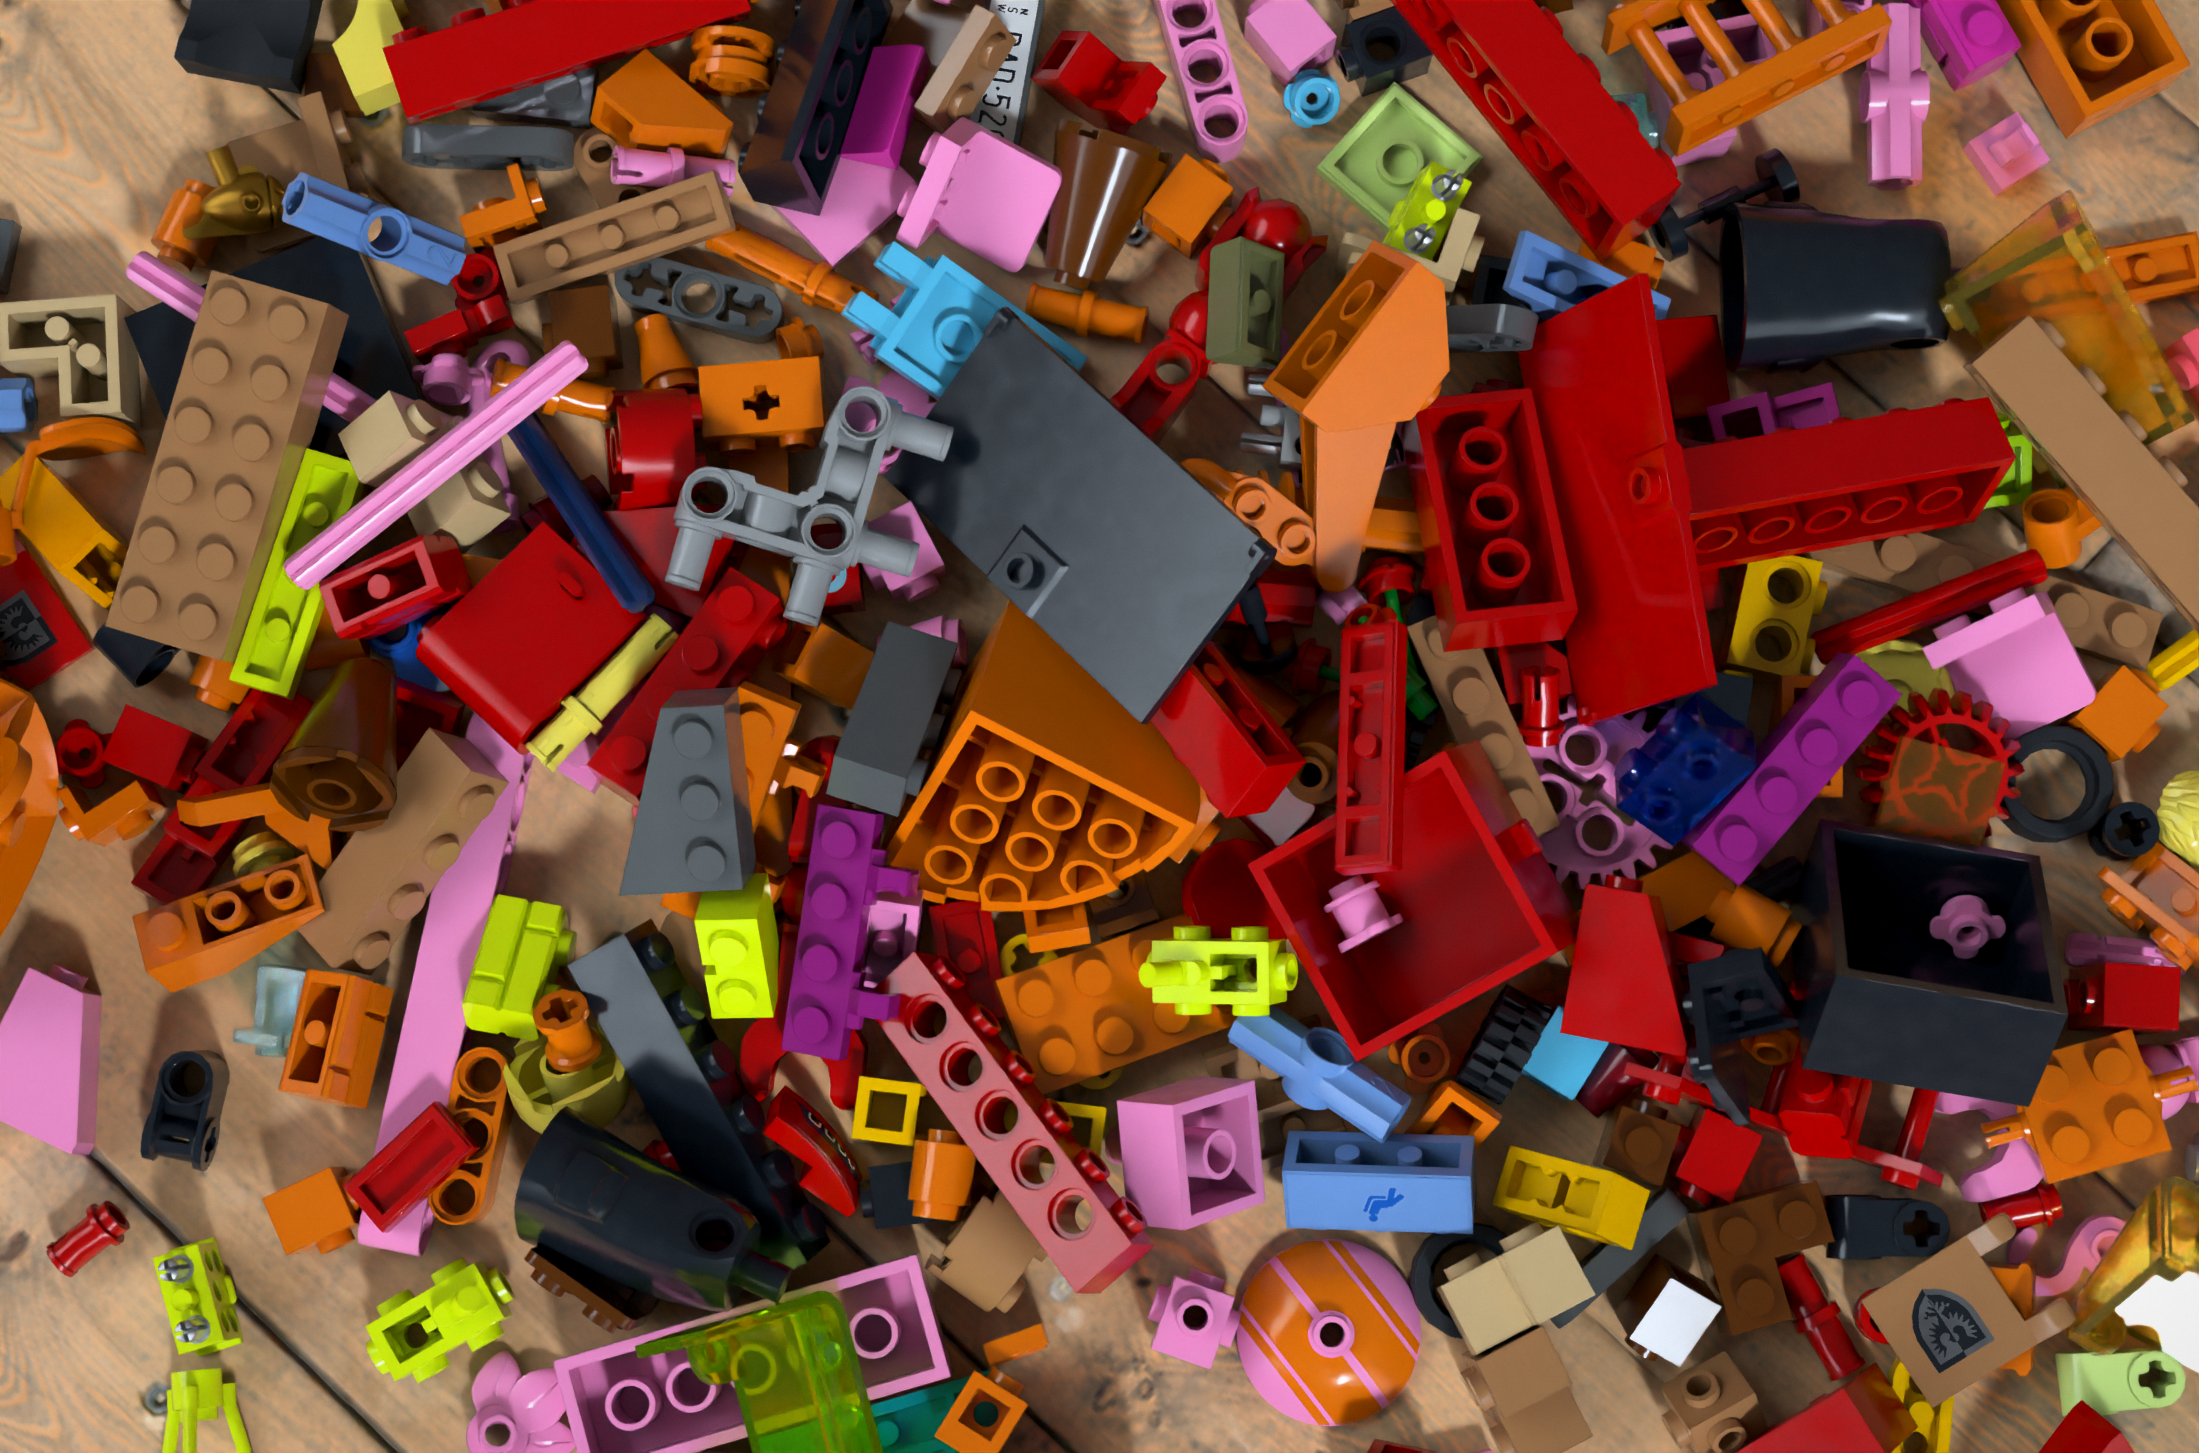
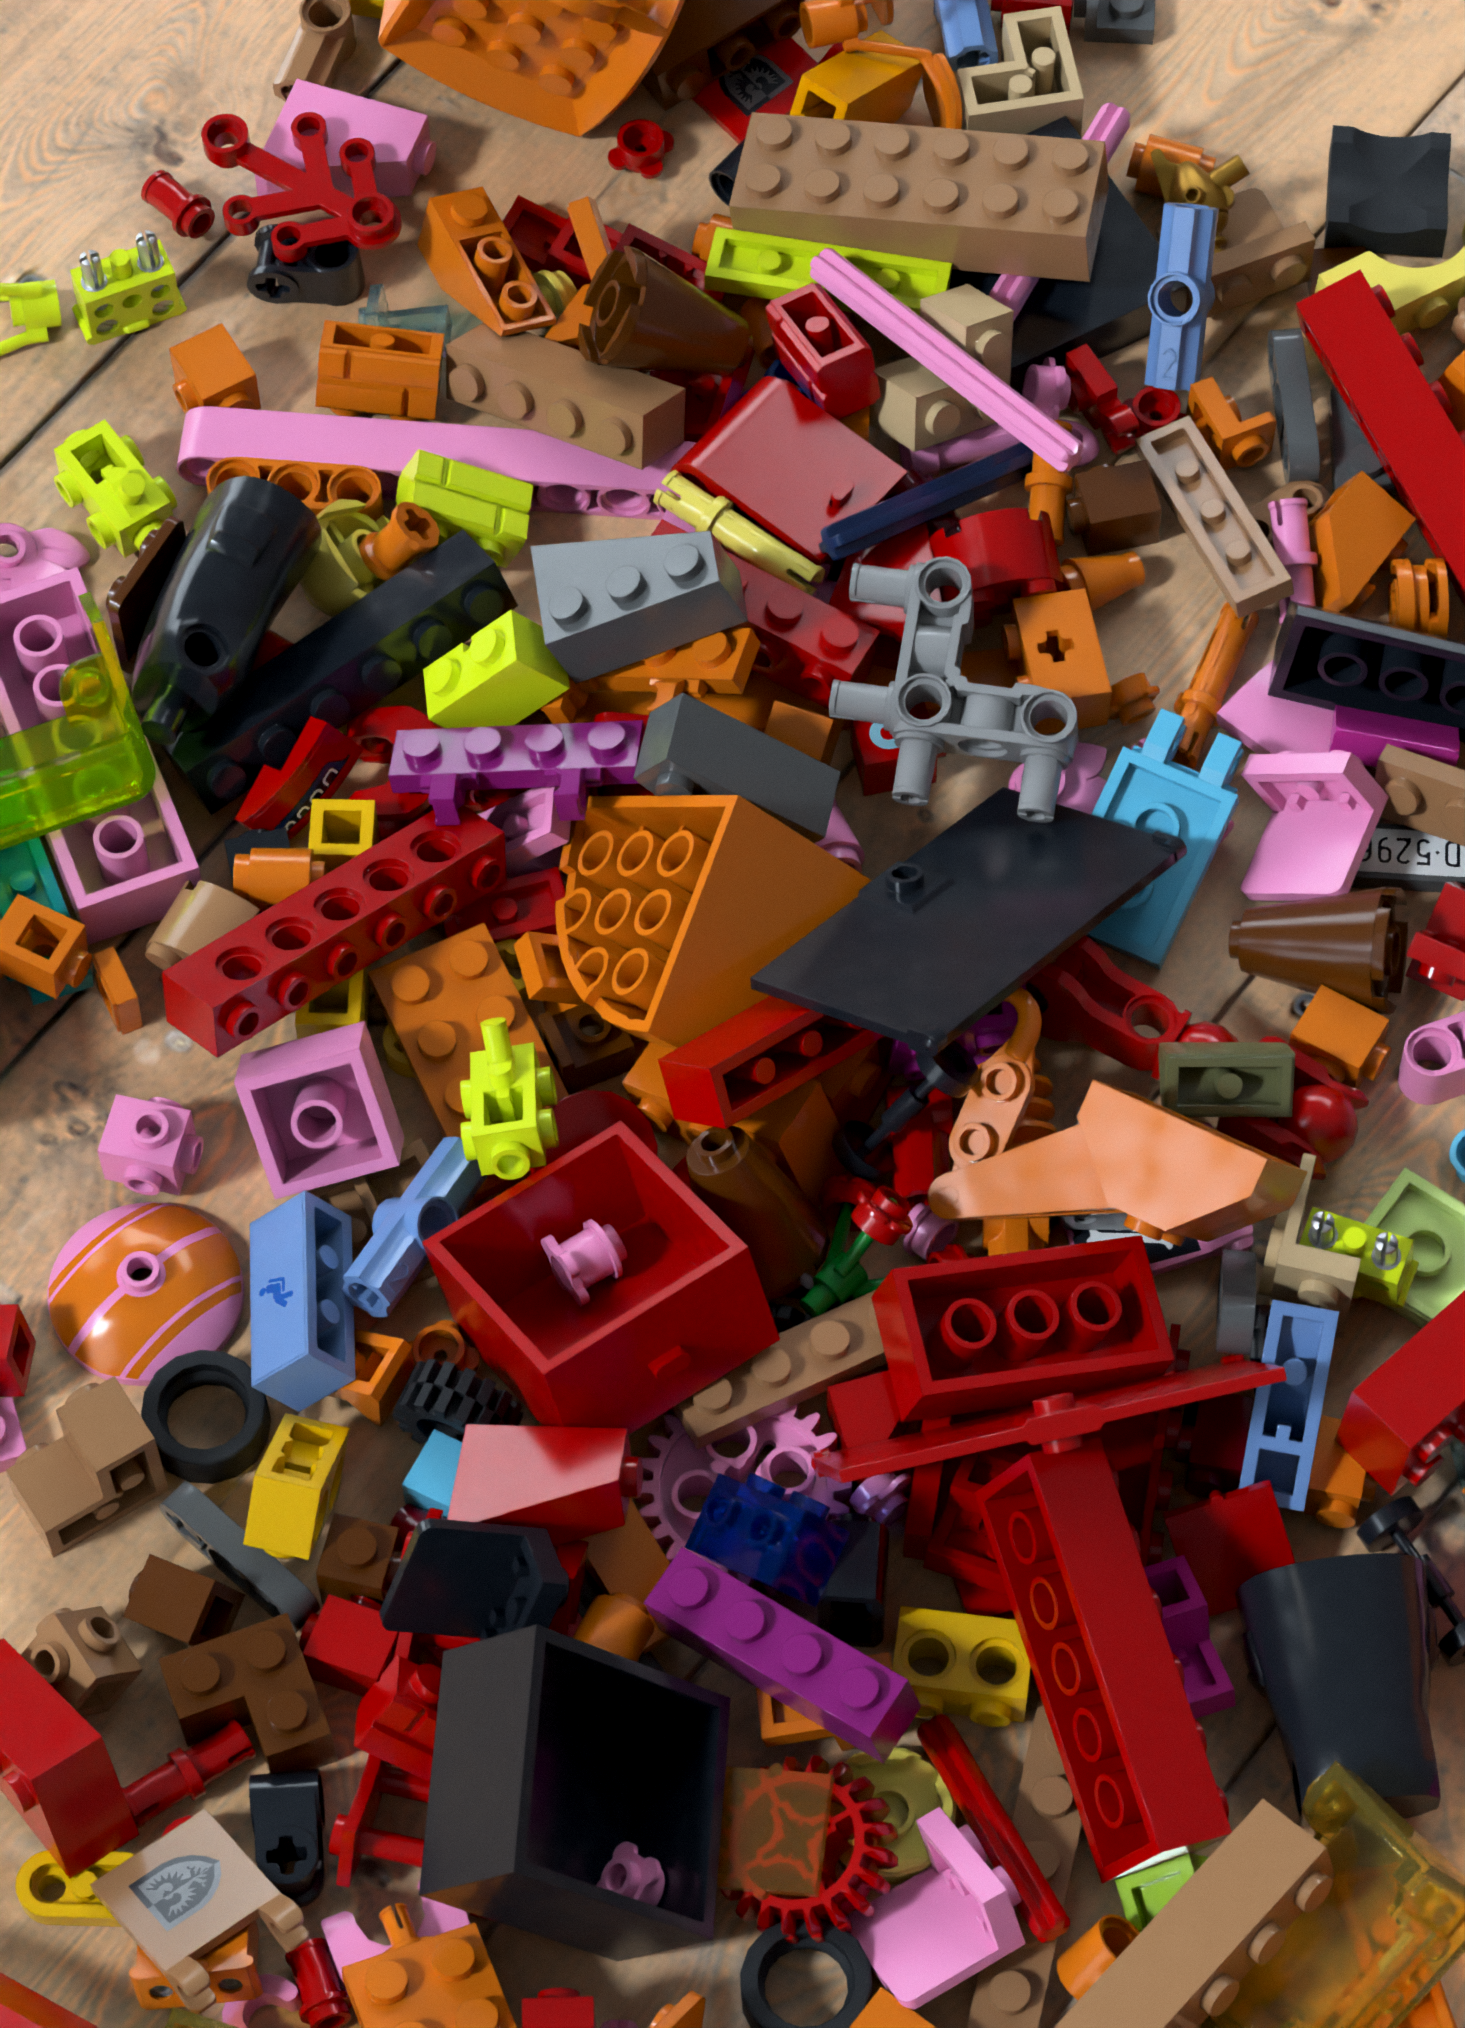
camera: 85 degrees right, 20 degrees down
(114, 1096) = (304, 190): none -> red plant
(121, 815) = (579, 168): orange bracket -> none
(155, 749) = (650, 194): red brick -> none
(411, 1167) = (259, 435): red tile -> none
(745, 296) = (1178, 631): dark grey beam -> none
(928, 567) = (915, 826): bright pink brick -> none
(1087, 313) = (1206, 958): orange pin -> none
(1371, 748) = (747, 1191): red plate -> none
(1515, 1289) = (199, 1423): tan brick -> none
(1540, 707) = (826, 1409): red pin -> none

